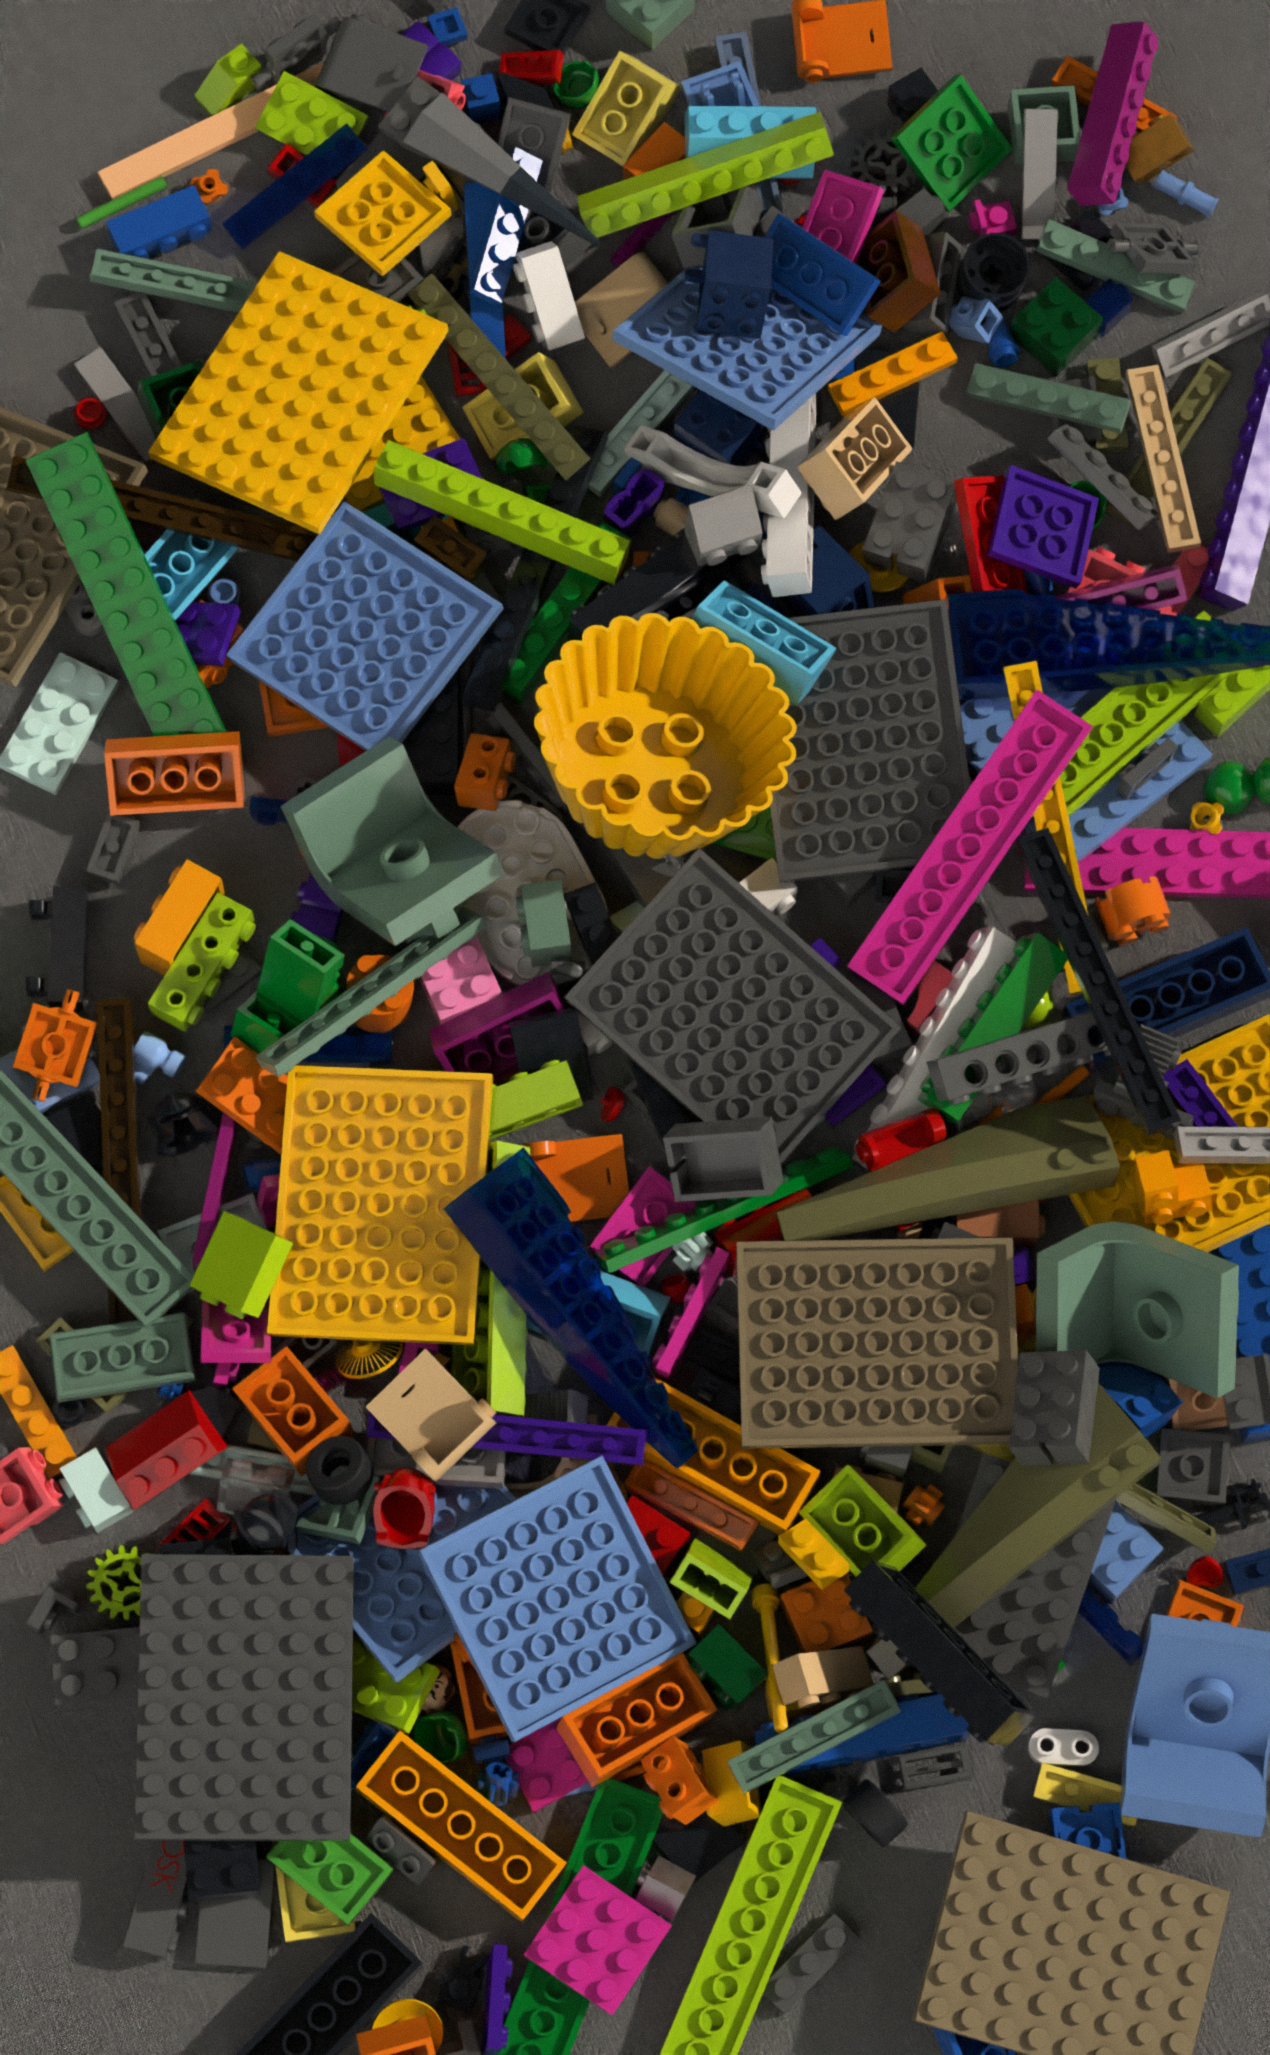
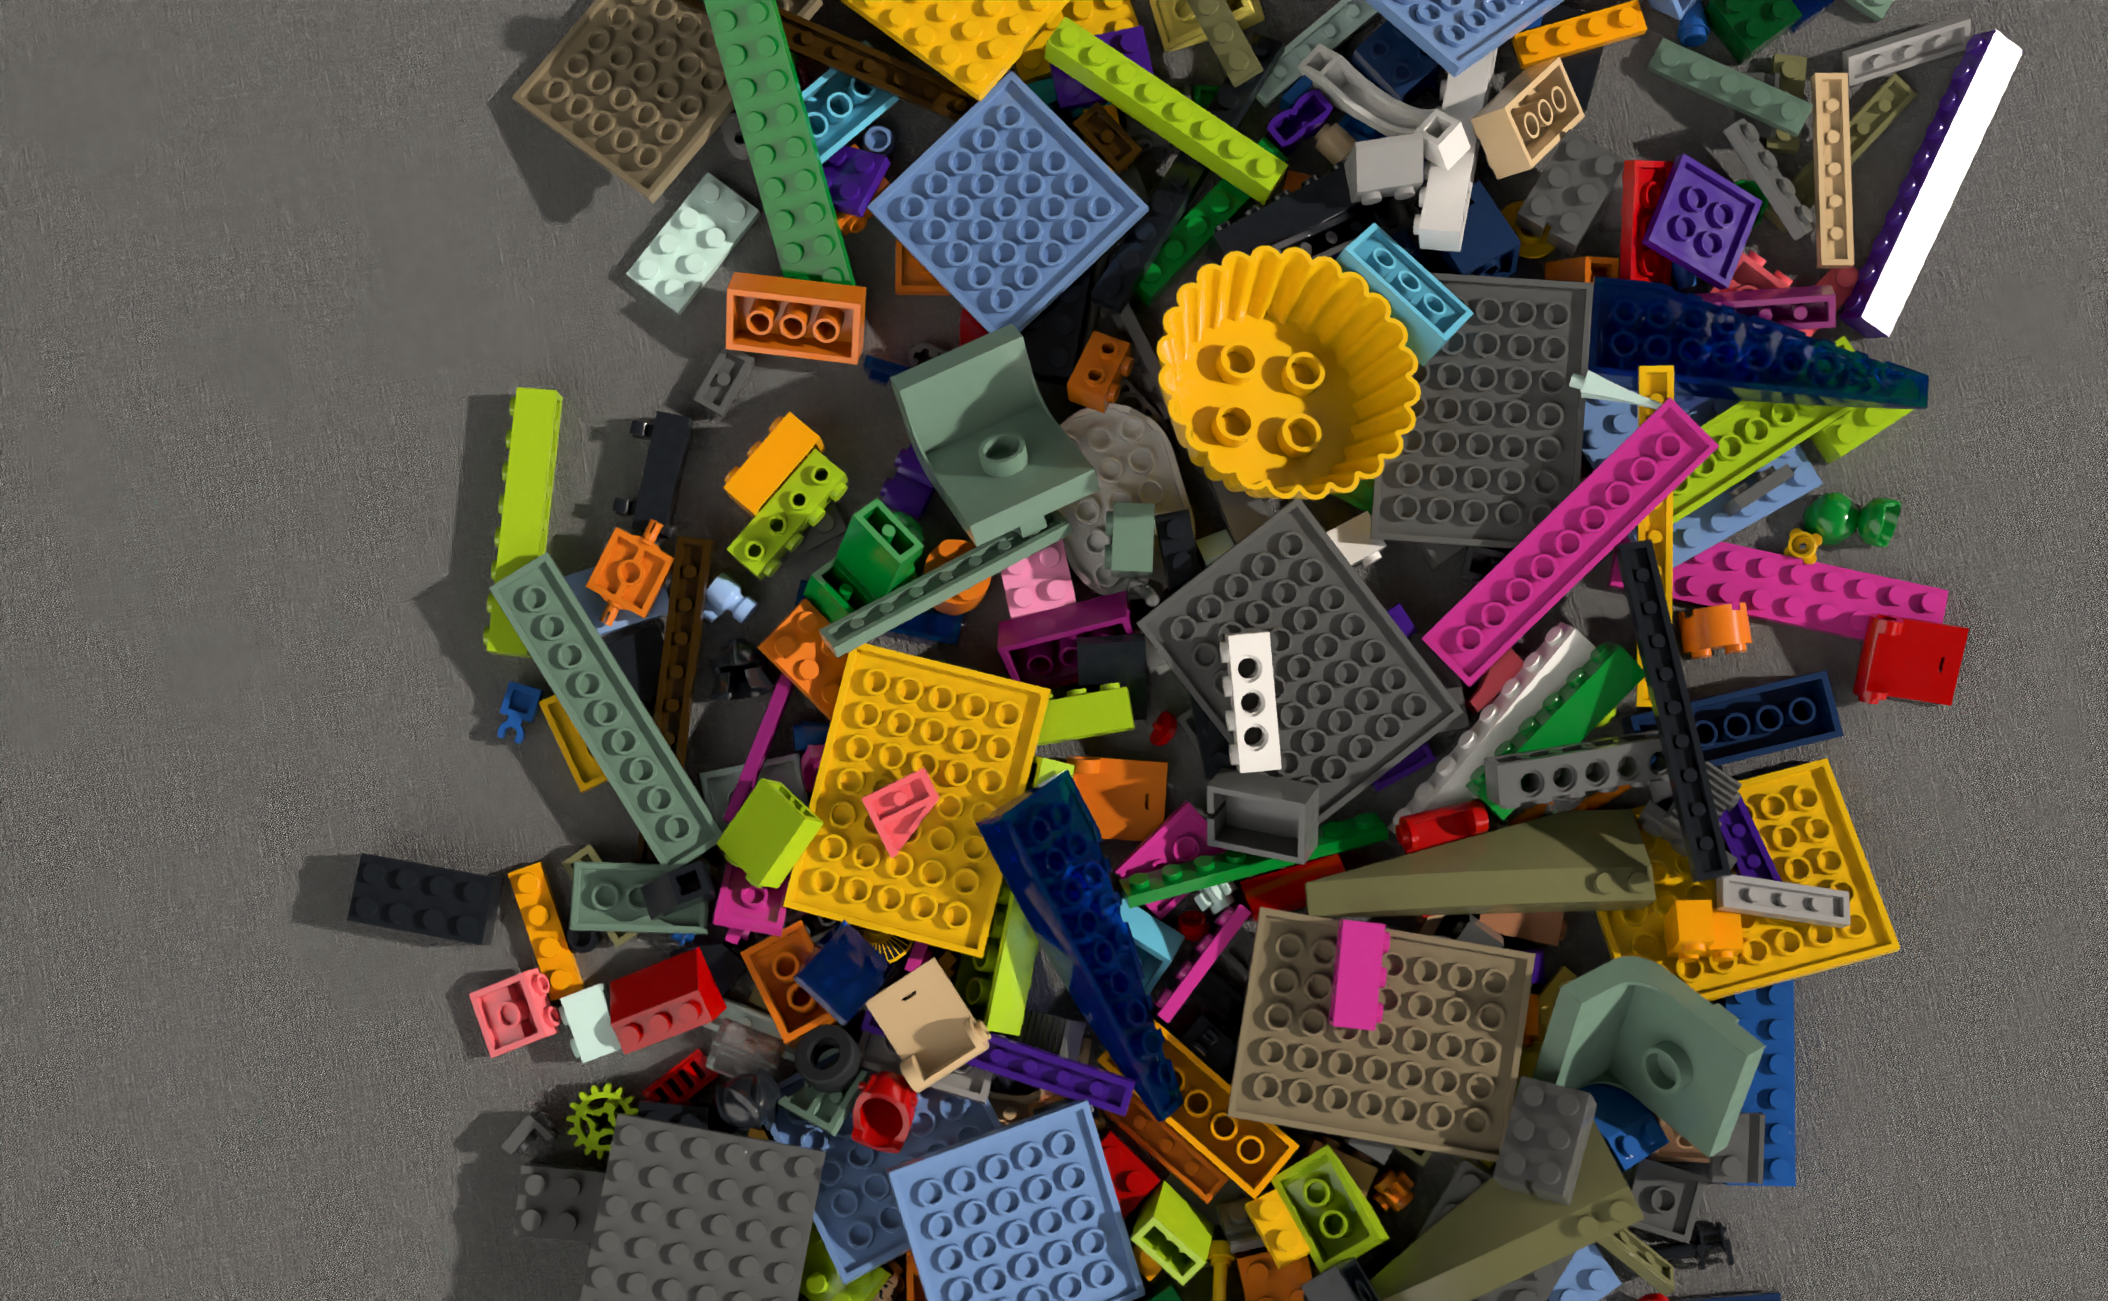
camera: 10 degrees right, 10 degrees up
(160, 1335) = (678, 890): none -> black slope
(339, 1381) = (843, 972): none -> clear blue slope
(367, 1212) = (901, 808): none -> coral wing
(519, 455) = (1193, 52): green hair -> none
(686, 997) = (1266, 752): none -> white brick
(843, 1284) = (1358, 975): none -> dark pink brick
(969, 695) = (1597, 387): none -> light aqua piece

